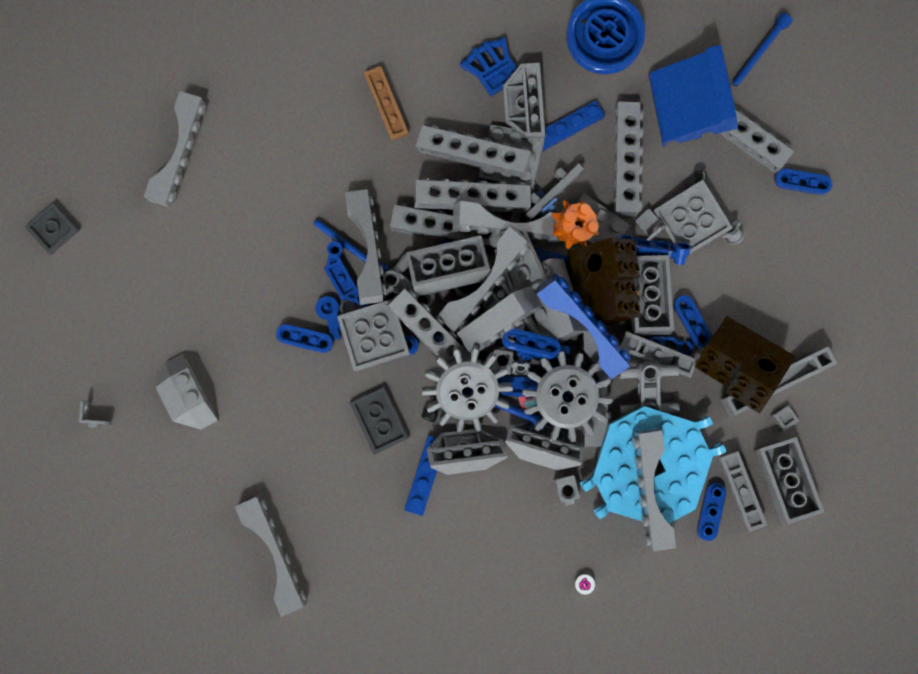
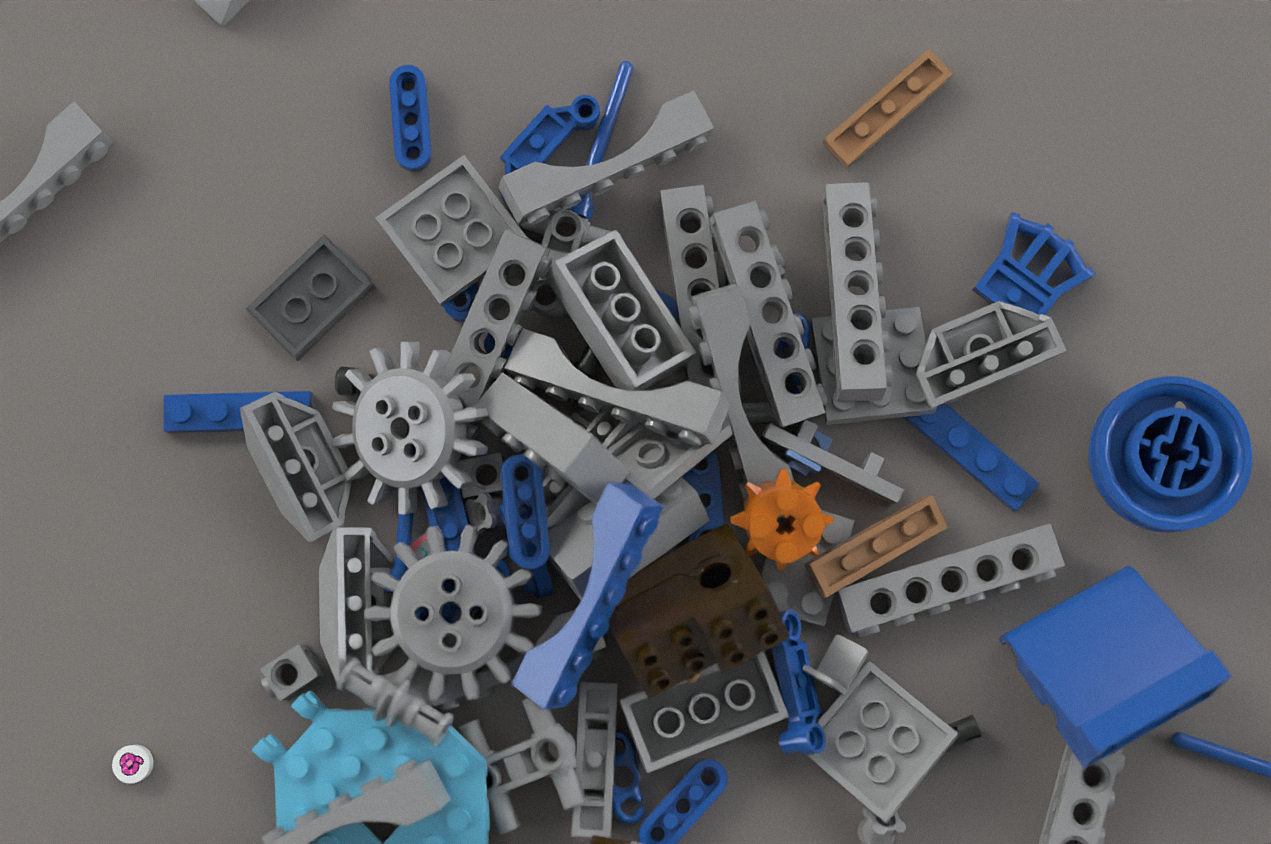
camera: 75 degrees right, 0 degrees up
(327, 309) = (476, 139): blue piece -> none
(600, 186) = (876, 545): none -> medium nougat plate
(601, 437) = (394, 702): none -> light grey piece

